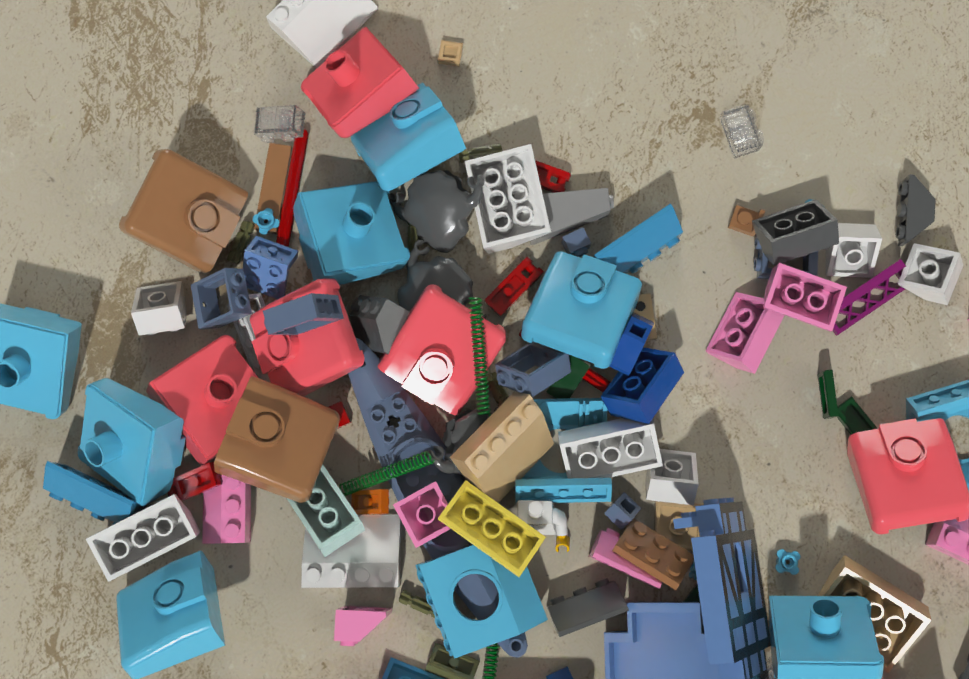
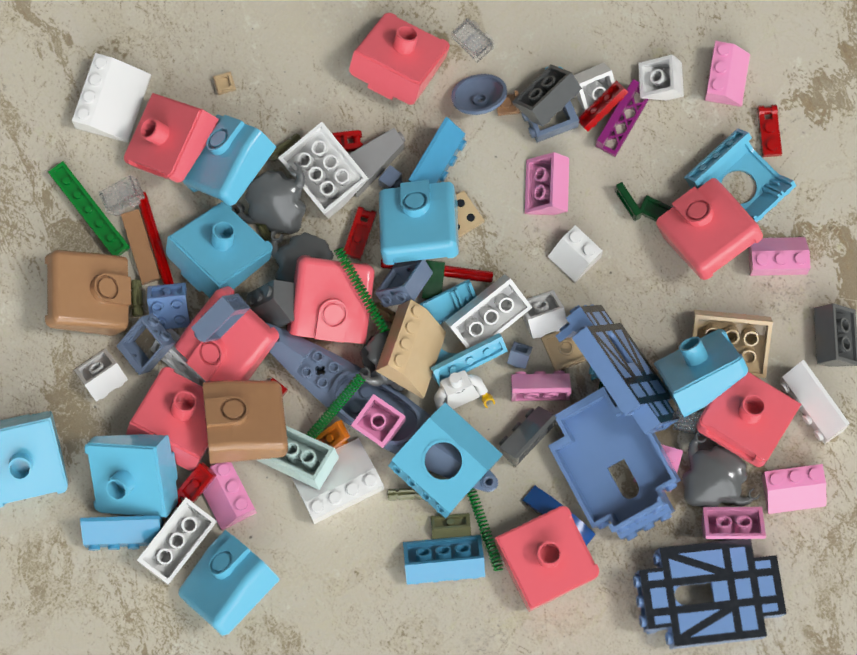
camera: 25 degrees left, 5 degrees down
(238, 122) = (88, 209): none -> green plate
(263, 215) = (148, 277): medium azure plate -> none
(356, 622) = (368, 520): bright pink slope -> none
(492, 528) = (430, 405): light yellow slope -> none
(631, 343) = (467, 231): blue slope -> none
(646, 388) = (489, 256): blue brick -> none
(649, 114) = (398, 59): none -> coral piece
(654, 553) = (556, 371): medium nougat plate -> none
(719, 195) = (479, 94): none -> sand blue dish
(740, 425) = (575, 254): none -> white slope
(781, 565) = (662, 337): medium azure plate -> none
(803, 296) = (574, 138): bright pink slope -> none
(857, 270) = (602, 105): none -> red plate
(914, 210) = (628, 39): dark grey slope -> none

